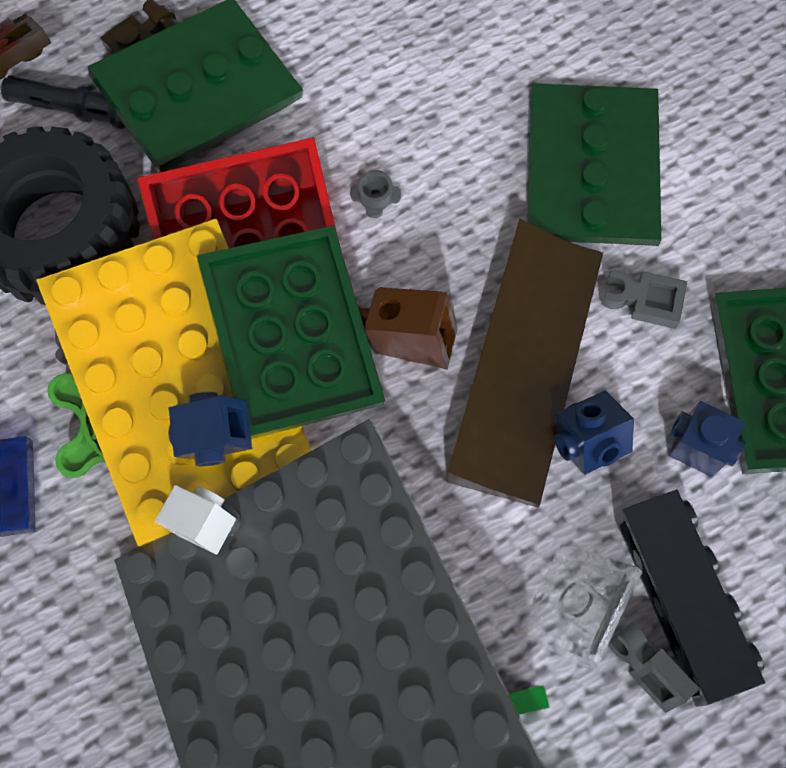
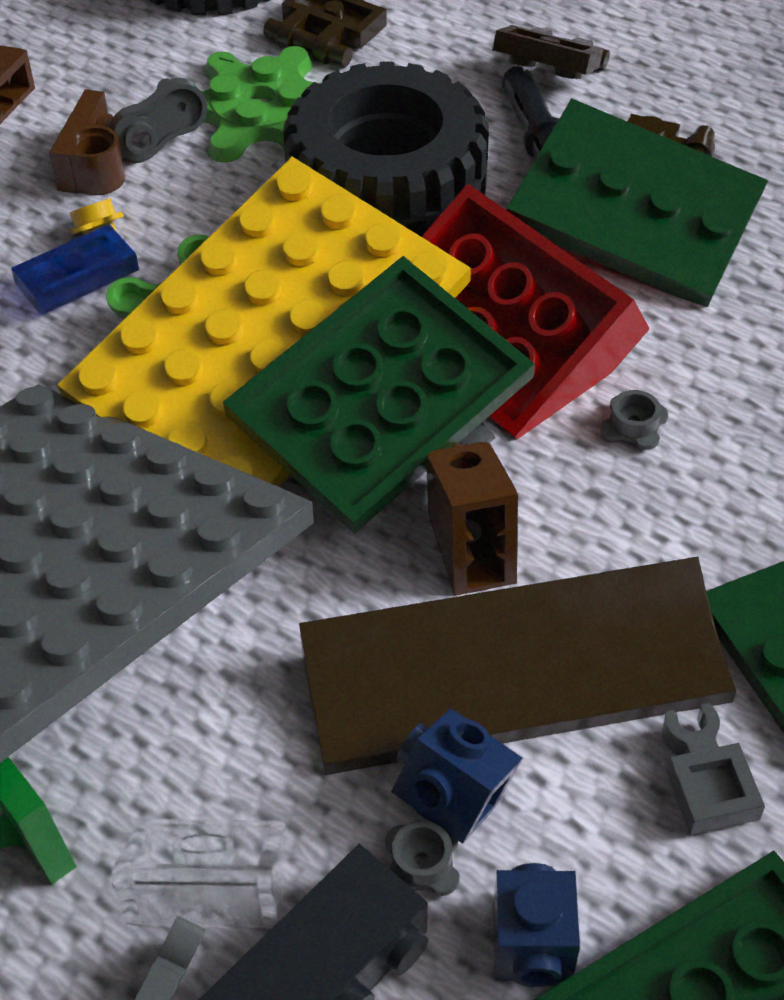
camera: 60 degrees right, 20 degrees down
(196, 517) = (101, 398): white plate -> none
(209, 428) = (209, 358): dark blue brick -> none
(639, 476) = (425, 839): none -> dark grey plate

